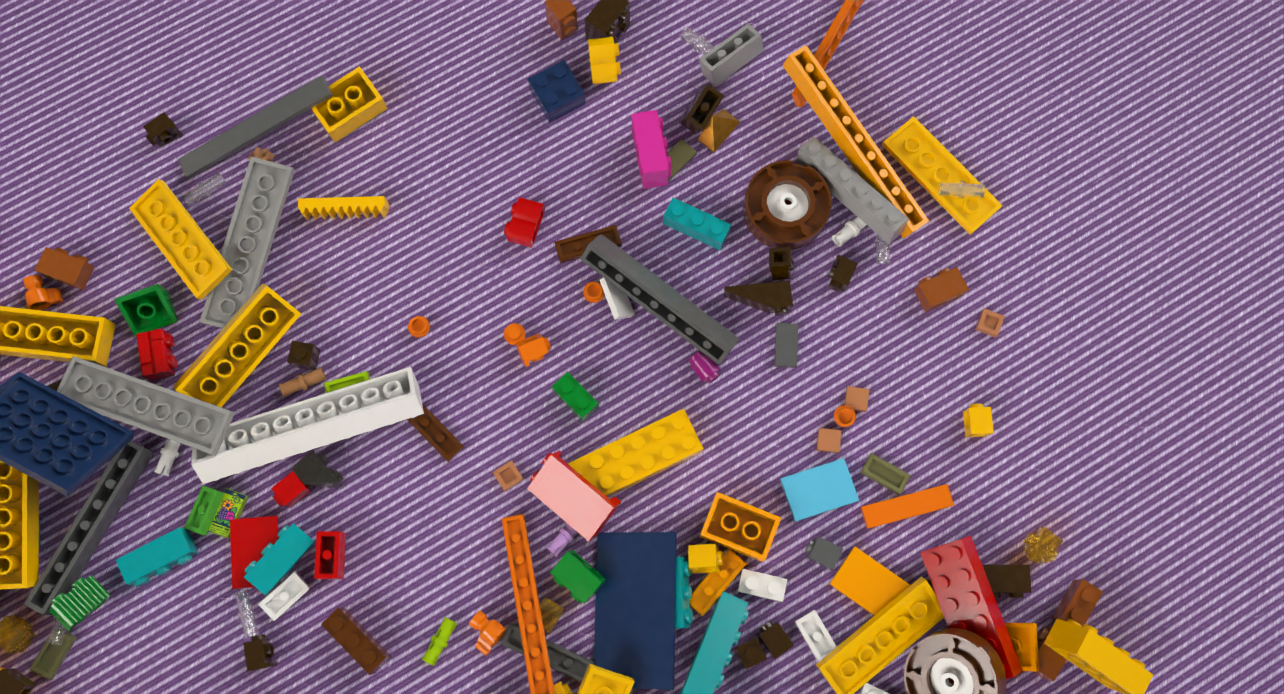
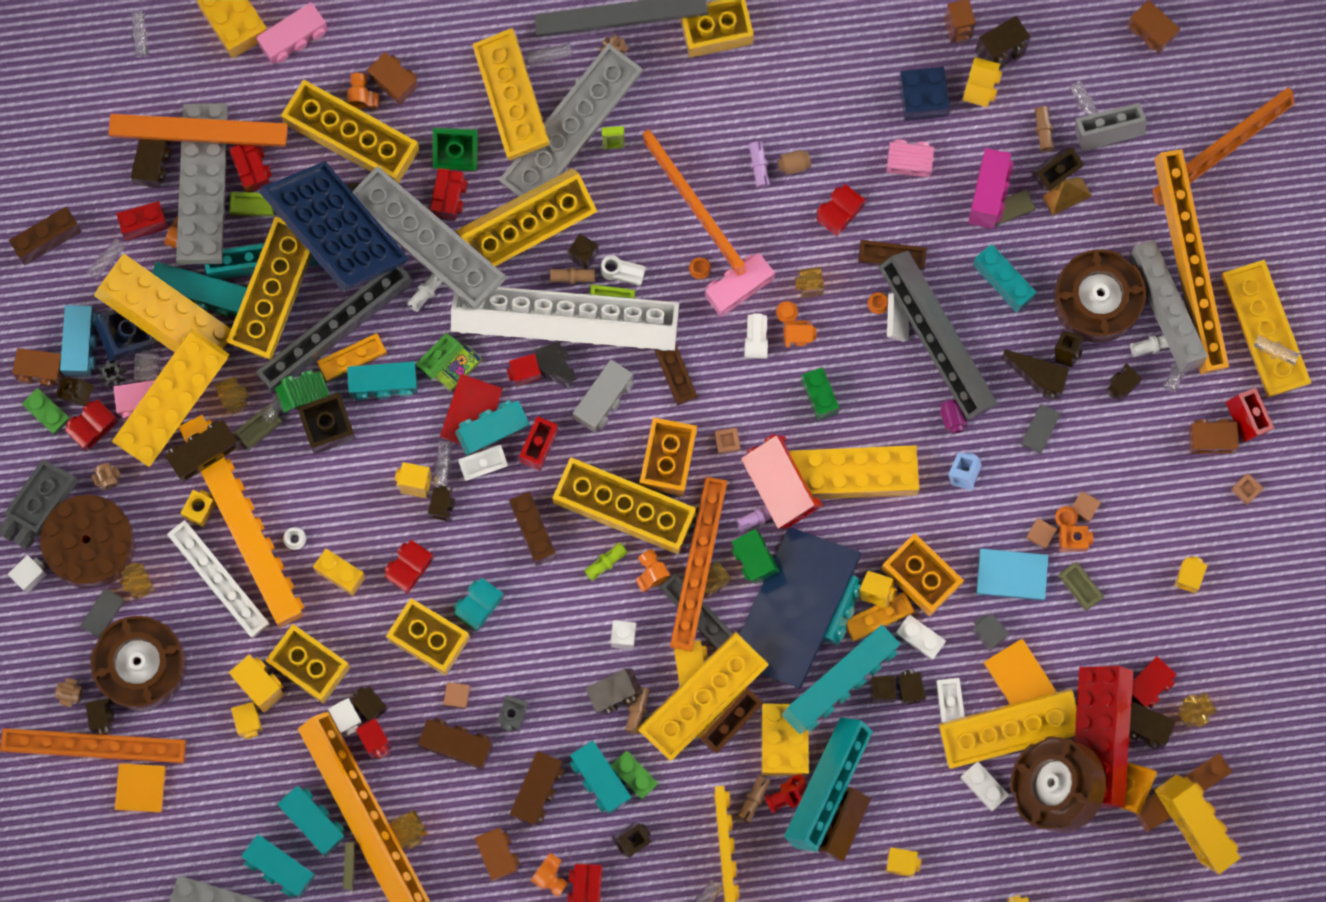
camera: 25 degrees right, 0 degrees up
(115, 623) = (326, 423): none -> dark brown brick
(124, 542) = (353, 355): none -> light orange tile
(221, 643) = (413, 480): none -> yellow brick
(290, 240) = (613, 137): none -> lime tile
(343, 206) = (674, 123): yellow gear -> none
(350, 358) = (625, 270): none -> white piece
(375, 483) = (603, 396): none -> light grey brick
(389, 270) = (694, 203): none -> orange tile
(434, 581) = (624, 505): none -> yellow brick
(435, 211) = (759, 164): none -> lavender pin
(458, 516) = (668, 456): none -> light orange brick
(460, 326) = (733, 290): none -> bright pink brick
(466, 197) = (794, 162): none -> medium nougat brick
(497, 373) = (756, 342): none -> white piece
(524, 298) = (810, 282): none -> clear yellow brick
(568, 152) = (910, 158): none -> bright pink brick
(674, 80) = (1044, 129): none -> medium nougat pin
(730, 406) = (958, 473): none -> light blue brick
(854, 436) = (1069, 544): none -> orange brick
(907, 506) = (1088, 624): orange tile -> none
(964, 254) = (1250, 415): none -> red brick
(989, 536) = (1151, 682): none -> red brick

